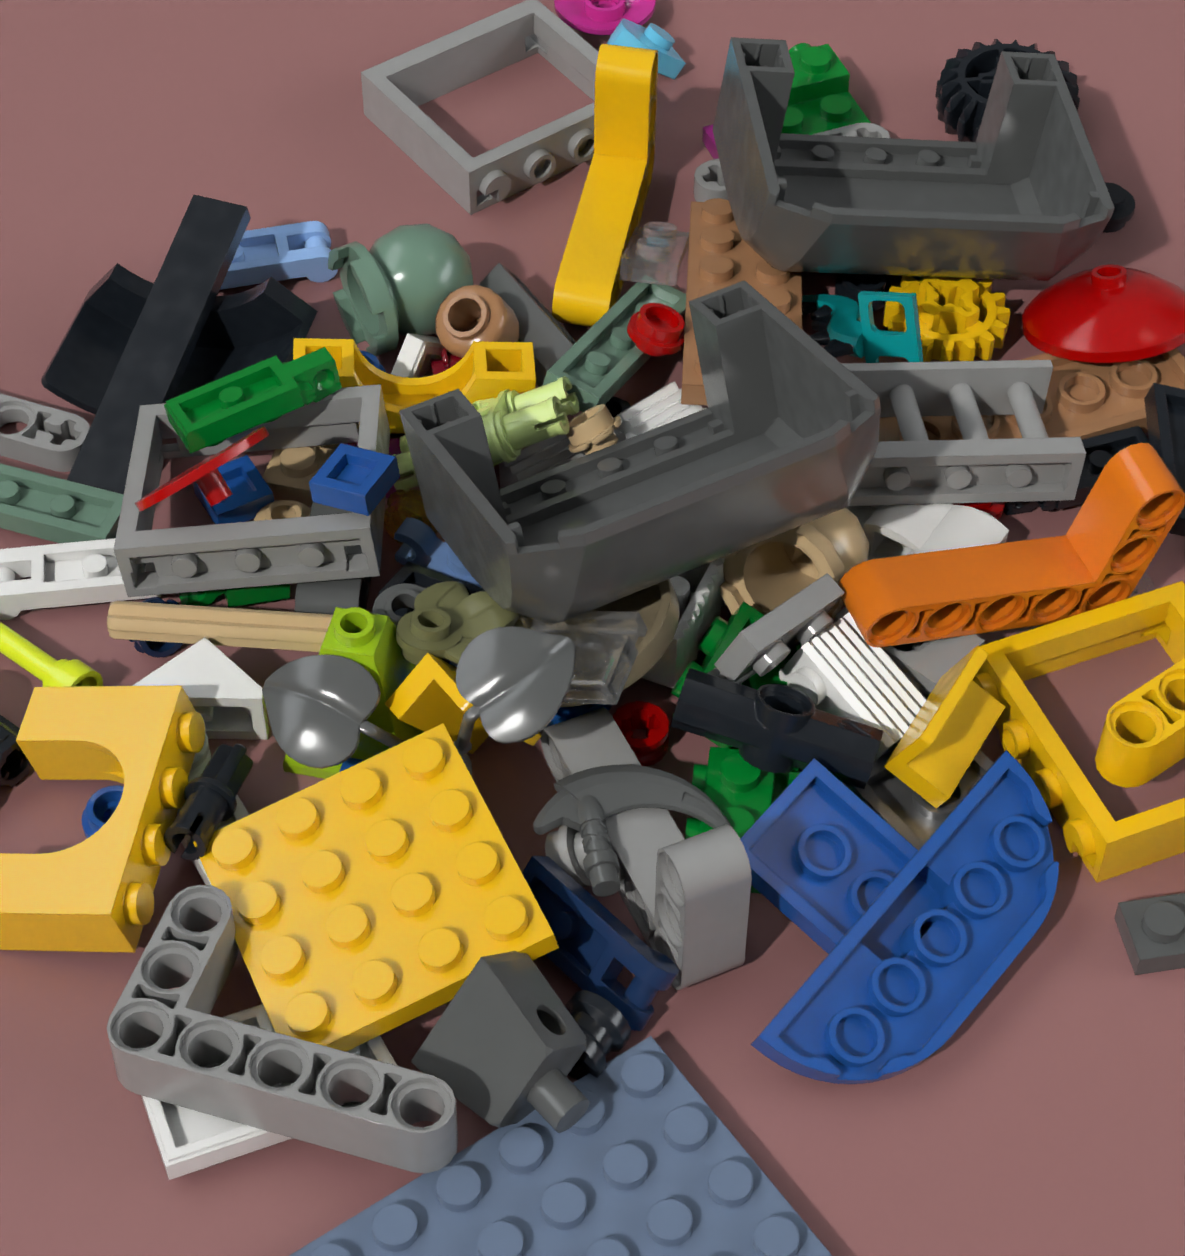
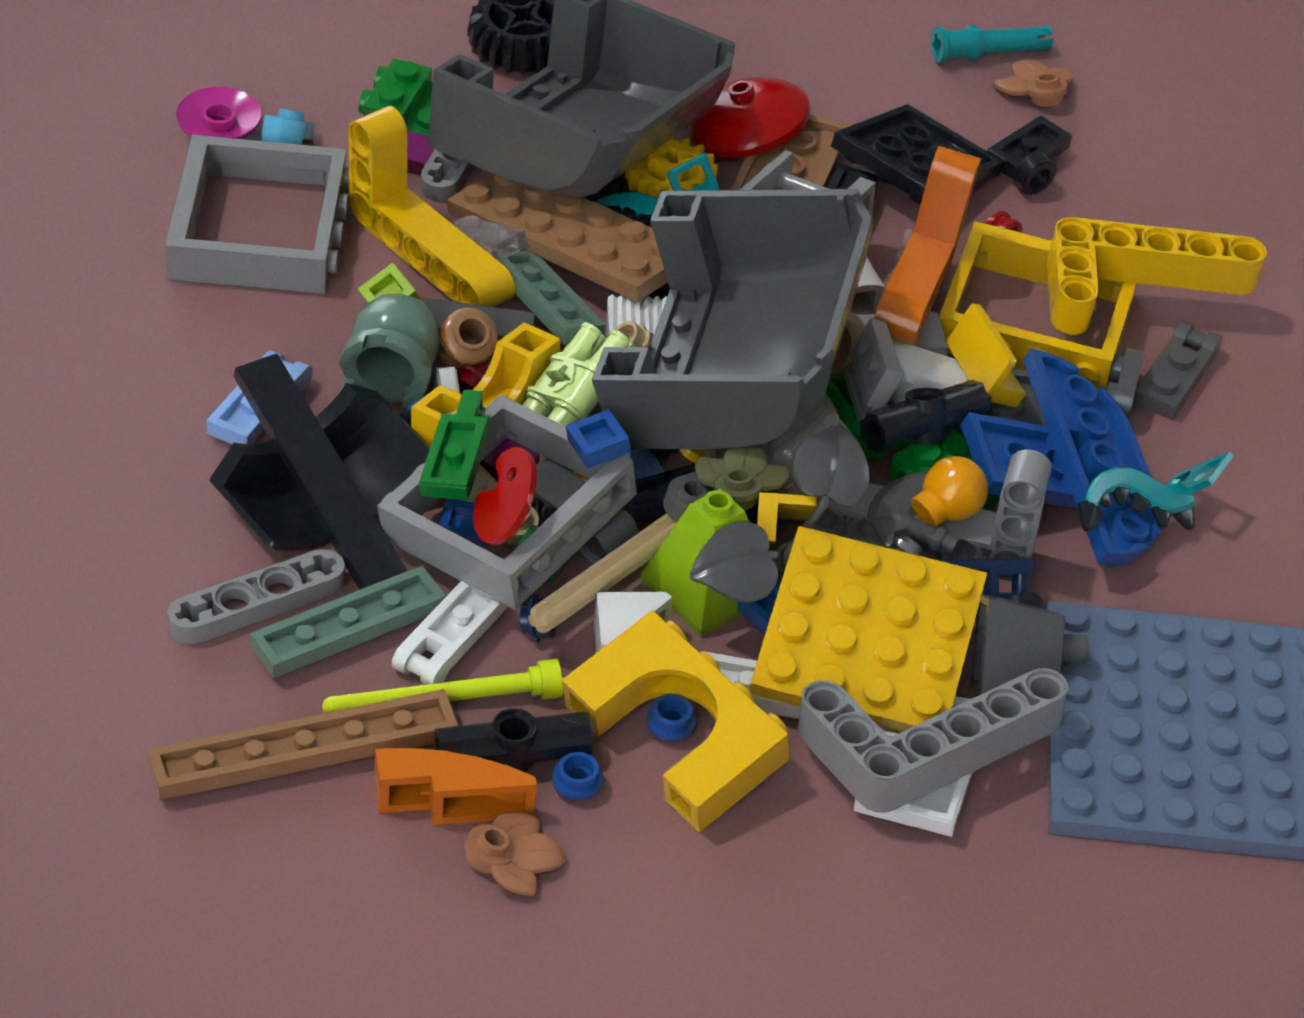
camera: 55 degrees left, 5 degrees down
(209, 800) = (729, 657): black axle -> none
(500, 242) = (387, 282): none -> lime plate
(657, 329) = (570, 272): red plate -> none
(658, 816) = (951, 491): none -> light orange piece
(903, 1008) = (1164, 500): none -> teal piece
(1092, 893) = (1126, 372): none -> dark grey plate

